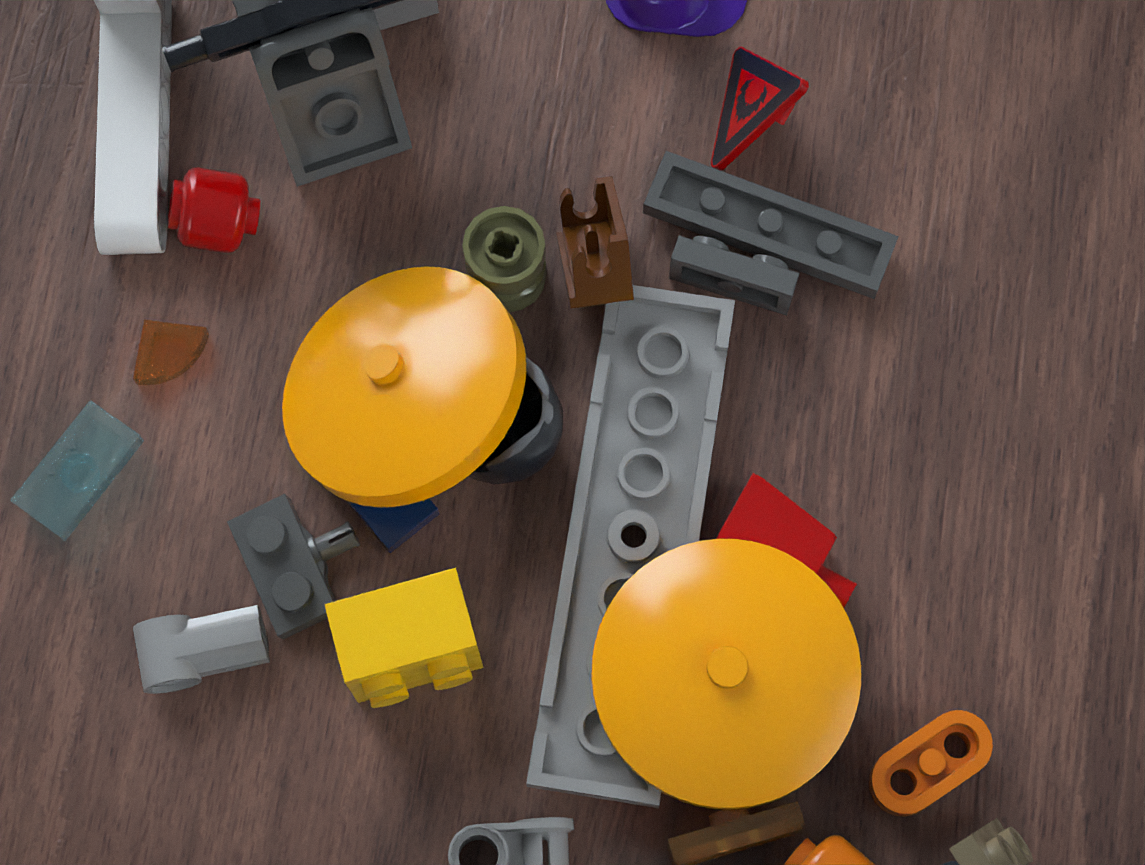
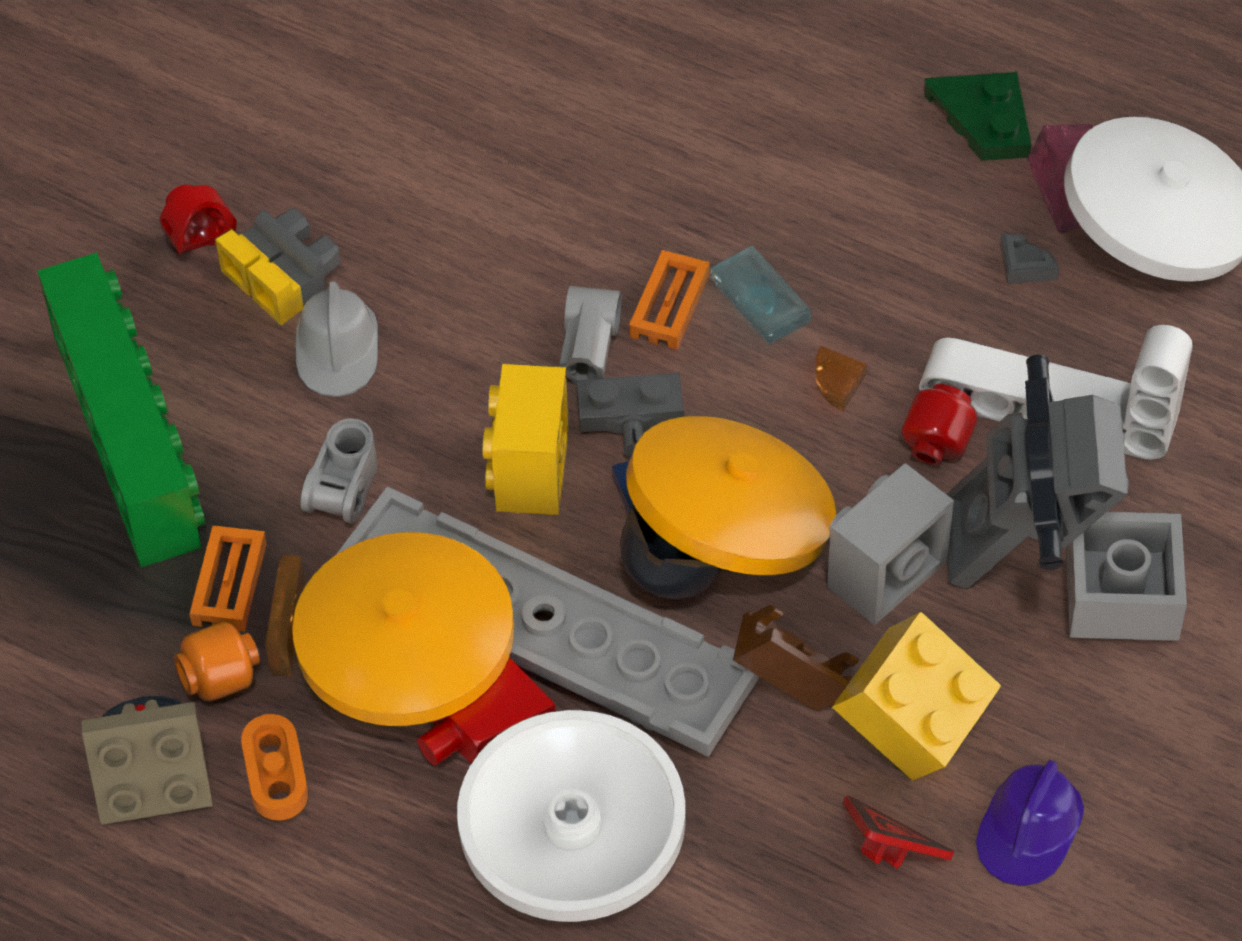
camera: 110 degrees right, 20 degrees down
(125, 552) = (659, 329): none -> orange tile
(409, 194) = (889, 543): none -> light grey brick
(507, 255) = (814, 598): olive wheel -> none
(598, 110) = (916, 696): none -> yellow brick
(712, 267) = (726, 777): dark grey plate -> none
(770, 224) = (772, 812): dark grey plate -> none
(874, 410) = (571, 815): none -> white dish

